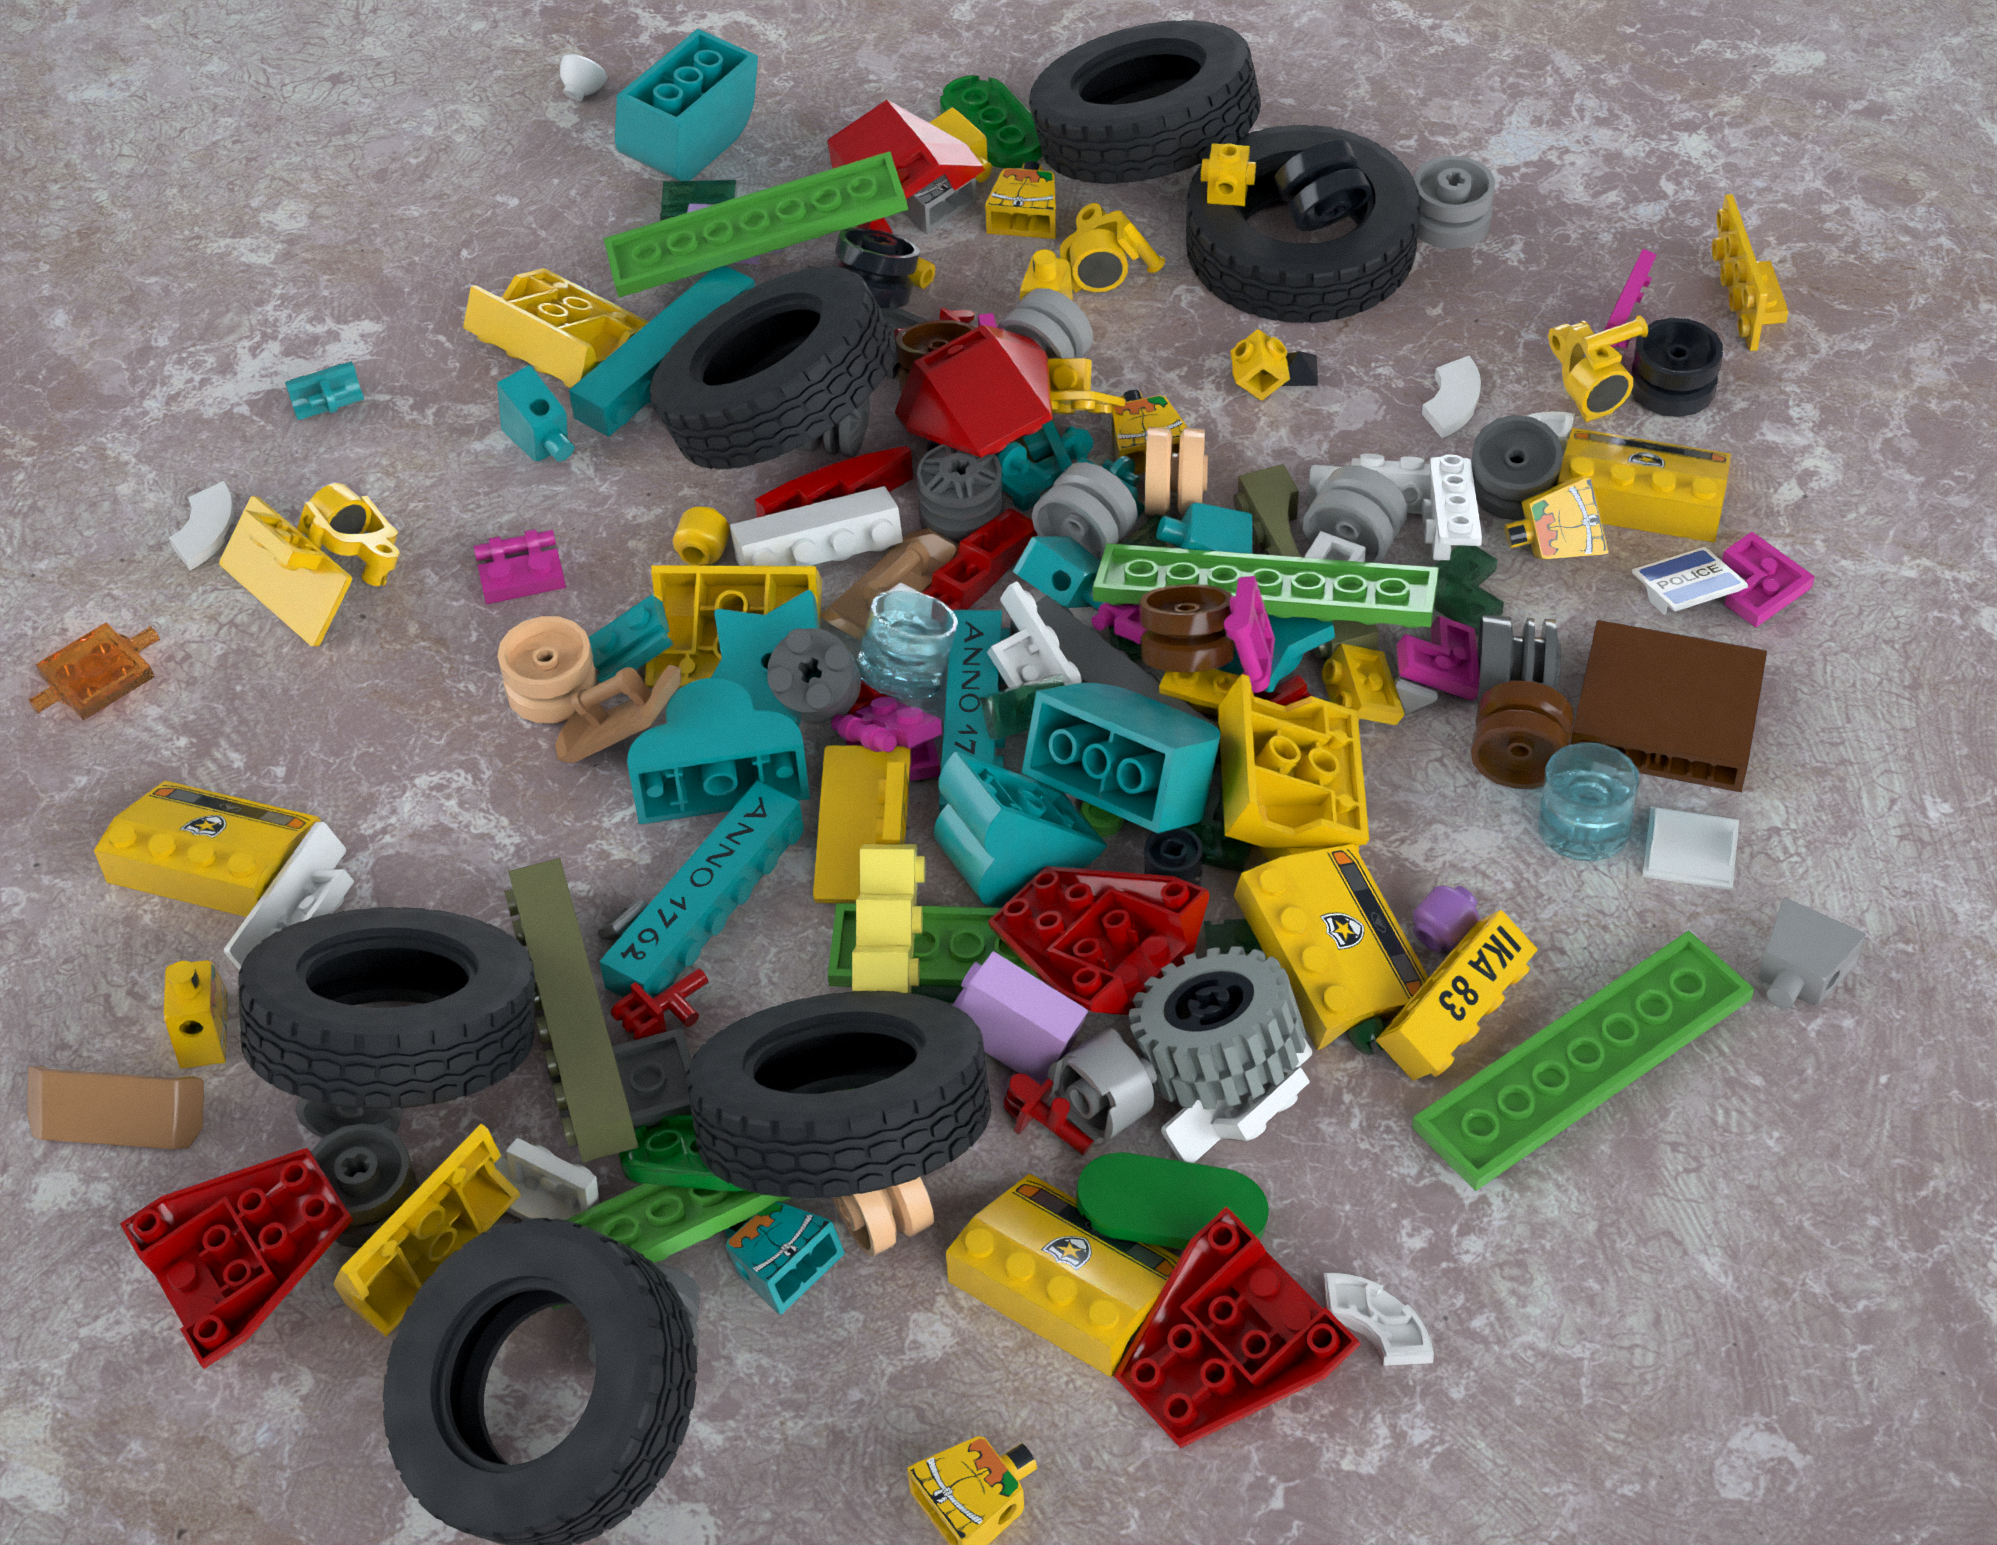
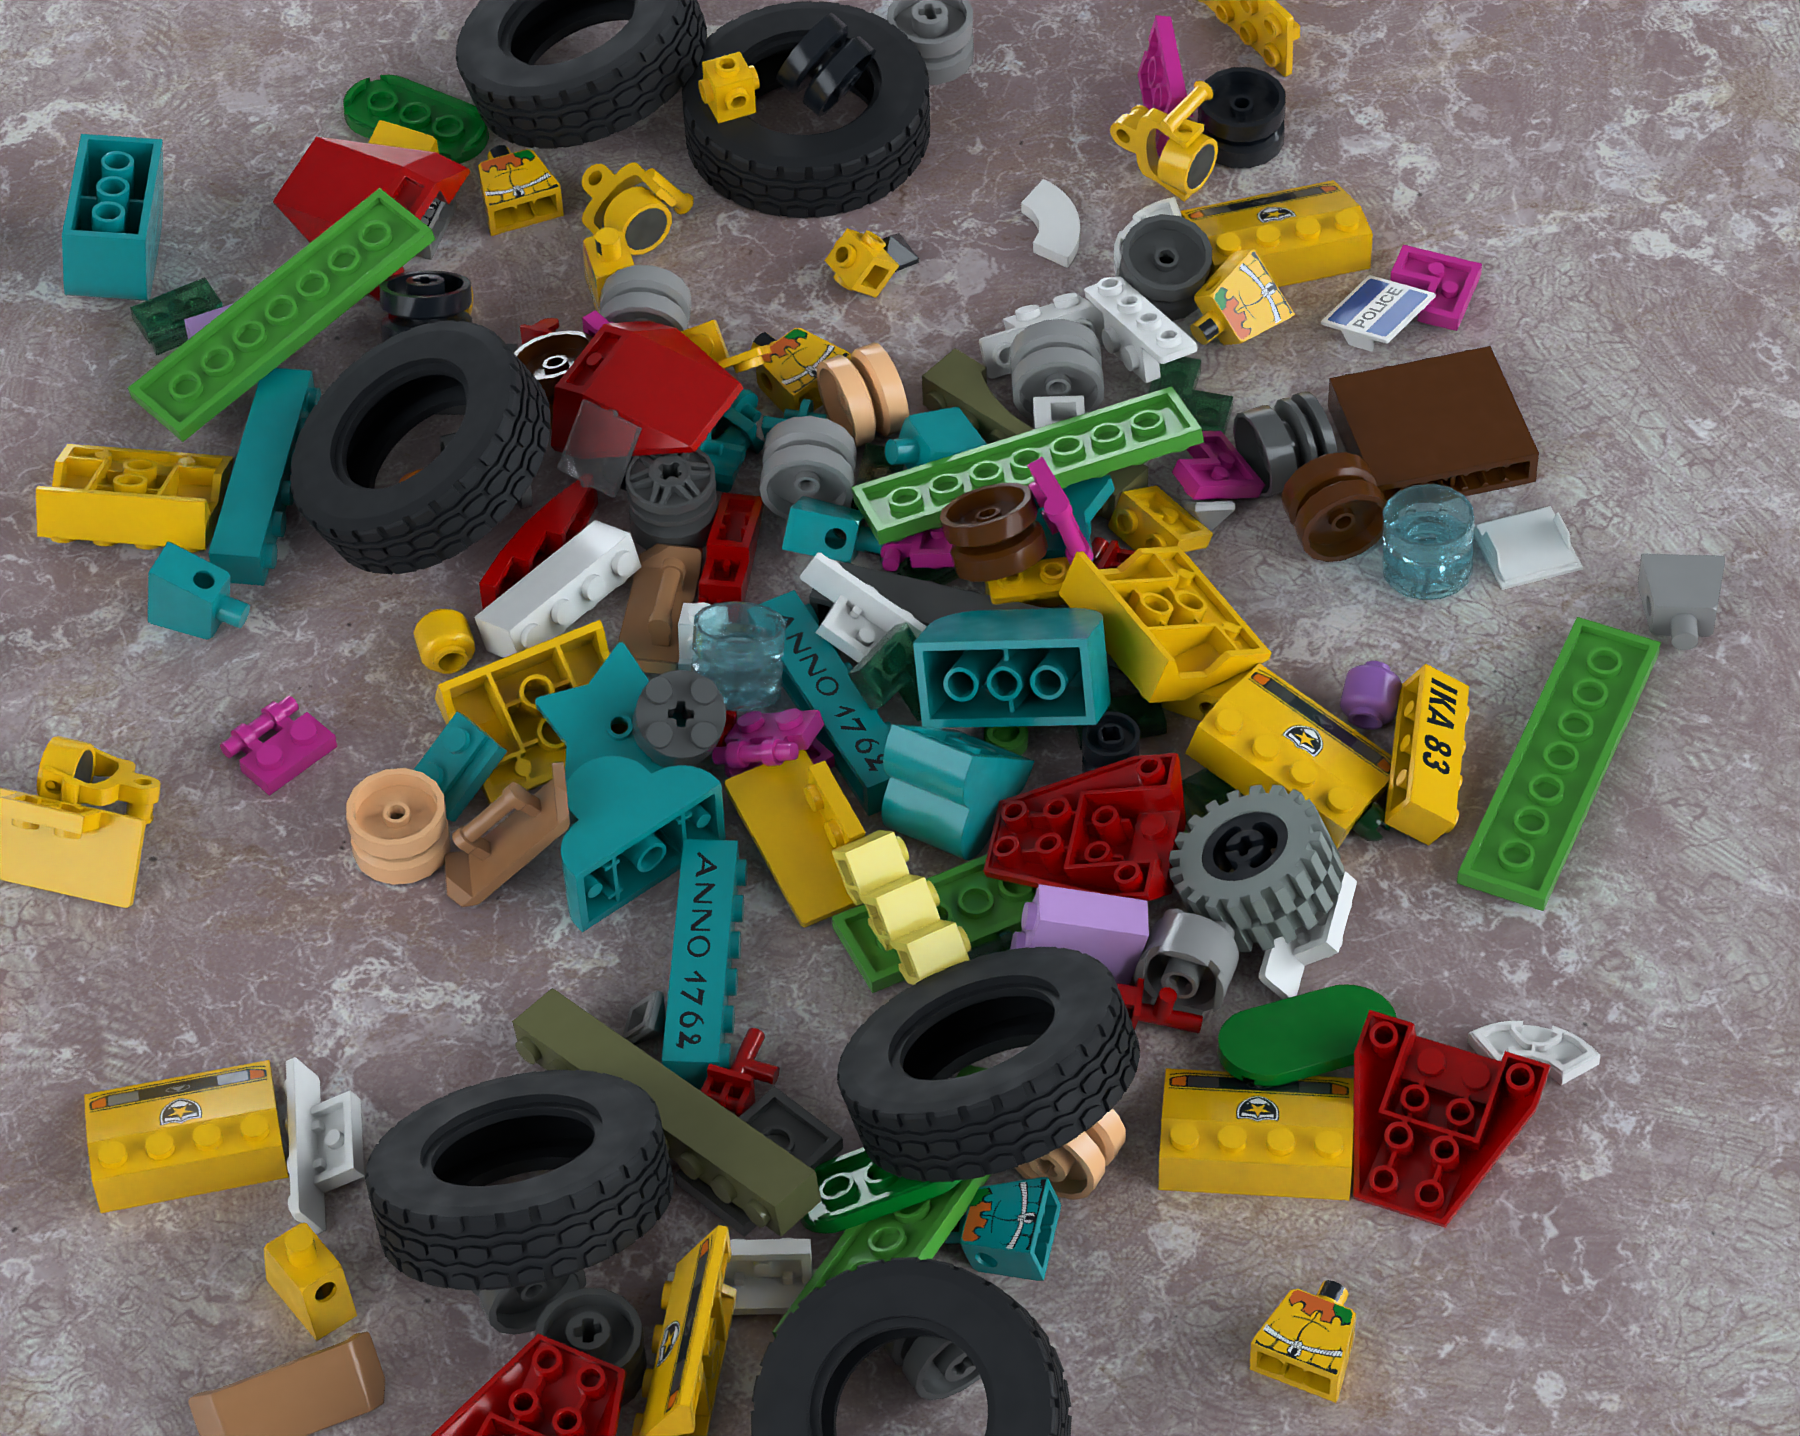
camera: 30 degrees left, 0 degrees up
(916, 426) = (599, 448): none -> clear piece

